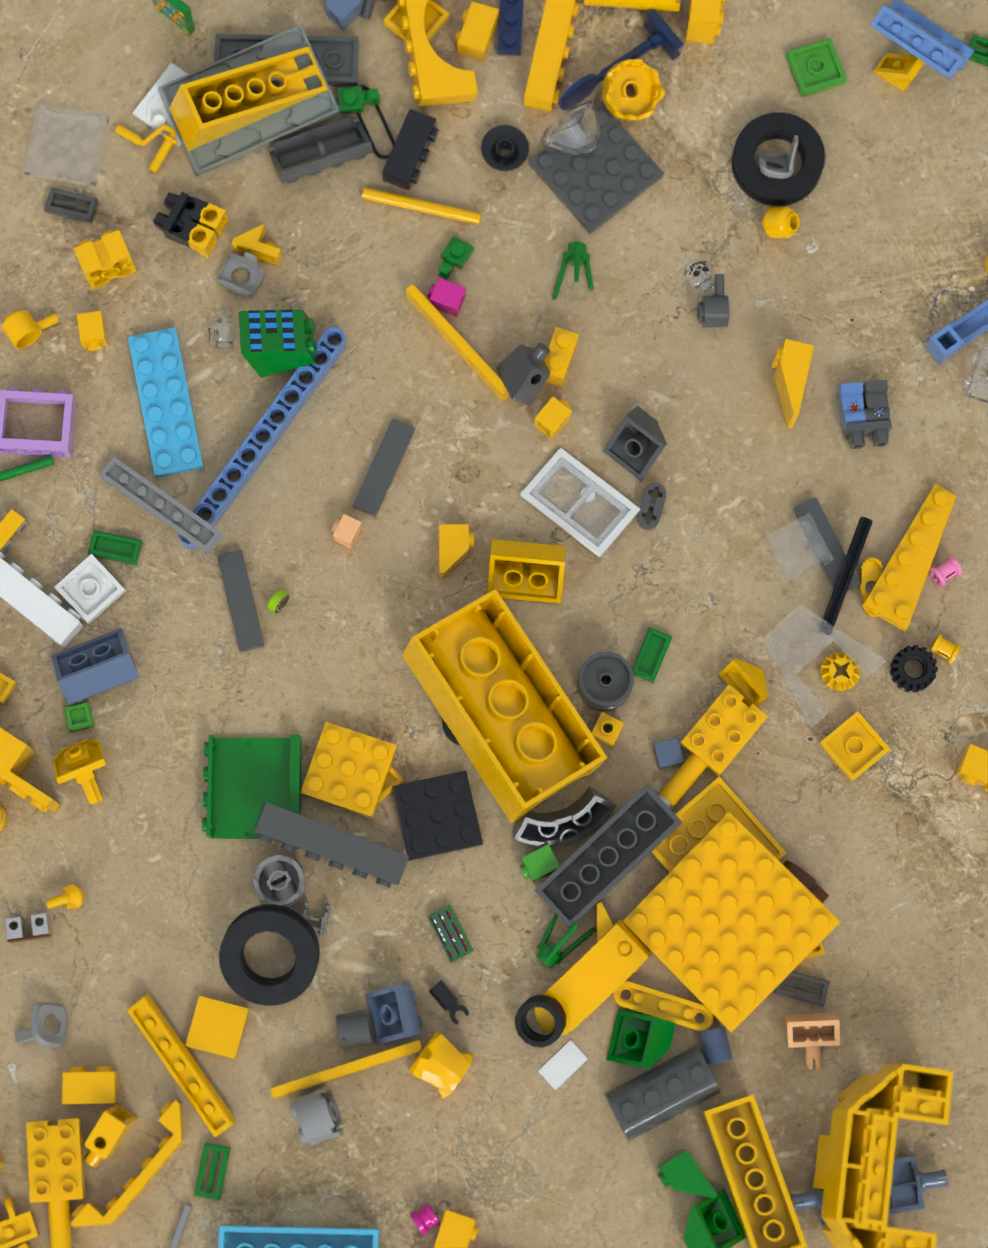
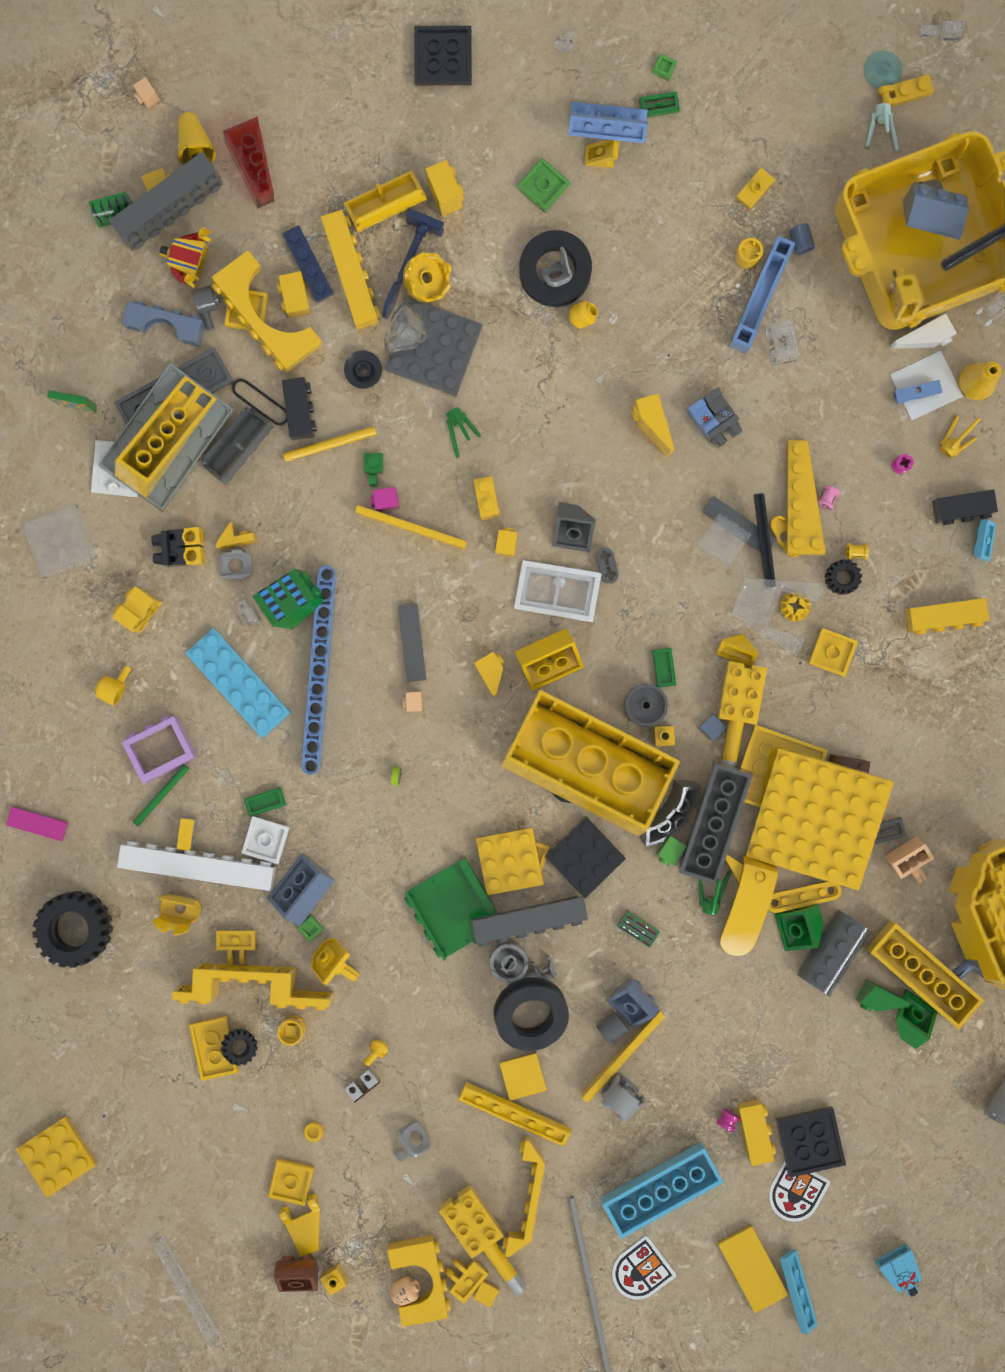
camera: 25 degrees left, 10 degrees up
(67, 213) = (105, 578): dark grey tile -> none
(90, 1087) = (464, 1162): yellow brick -> none
(92, 330) = (158, 663): yellow brick -> none
(112, 1127) = (495, 1185): yellow torso -> none
(161, 505) = (280, 758): light grey plate -> none
(164, 149) = (128, 505): yellow piece -> none
(217, 1148) = (569, 1152): green tile -> none
(241, 601) = (370, 789): dark grey tile -> none
(353, 99) = (237, 394): green plate -> none
(441, 1064) = (682, 1018): yellow piece -> none
(447, 1000) = (662, 973): black bar -> none
(525, 372) = (470, 524): dark grey torso -> none
(527, 1034) = (730, 940): black tyre -> none
(562, 1065) = (758, 970): white sticker -> none
(699, 277) = (550, 386): clear head -> none
(714, 309) = (573, 403): dark grey piece -> none
(715, 1045) = (852, 903): sand blue piece -> none

